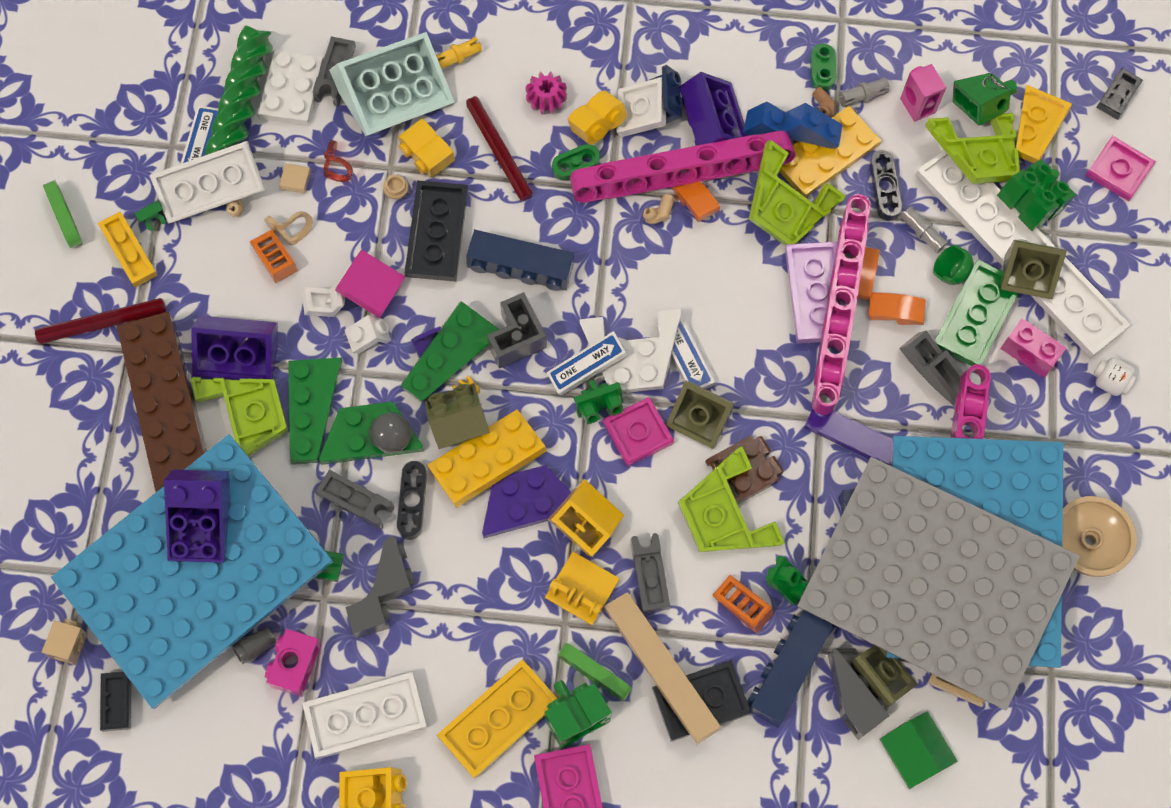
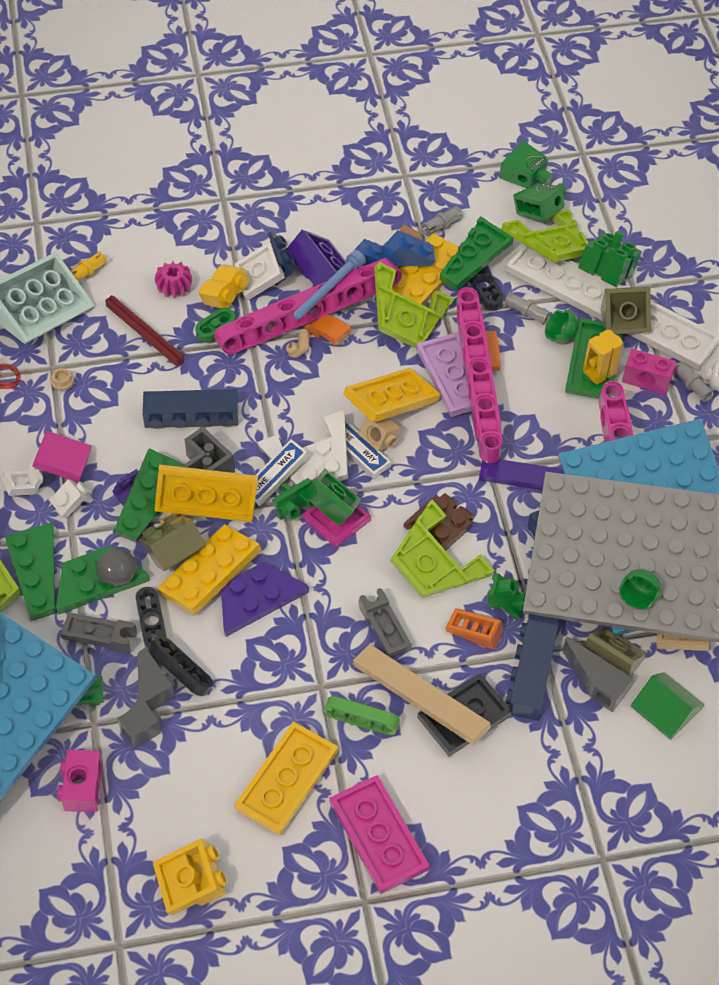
camera: 15 degrees left, 15 degrees down
(253, 645) = (37, 778): dark grey cone -> none
(364, 715) = (161, 808): white plate -> none
(426, 148) = (81, 343): yellow brick -> none
(436, 231) = (109, 404): black plate -> none
(436, 567) = (172, 657): none -> black beam
(505, 373) = (205, 493): none -> yellow plate
(576, 714) = (357, 751): green brick -> none
(582, 588) = (328, 652): yellow hinge -> none
(586, 518) = (313, 593): yellow slope -> none
(638, 412) = (332, 497): none -> green slope
(700, 414) = (387, 487): olive slope -> none
(713, 344) = (380, 434): none -> tan brick
(738, 304) = (391, 394): none -> yellow plate
(747, 127) = (353, 261): none -> medium blue piece
(823, 65) = (401, 211): green plate -> none
(892, 143) = (475, 253): none -> green wing
(898, 307) = (532, 369): orange slope -> none
(923, 92) = (491, 204): dark pink brick -> none
(926, 628) = (640, 589): none -> green hair
(934, 365) = (572, 404): dark grey slope -> none
(981, 45) = (525, 166): none -> green torso
(985, 322) = (602, 356): none -> yellow brick
(1039, 123) = (592, 210): yellow wing -> none
(1079, 372) = (693, 381): none -> light grey pin
(1119, 93) = (648, 177): plate -> none
(1120, 168) = (669, 229): tile -> none

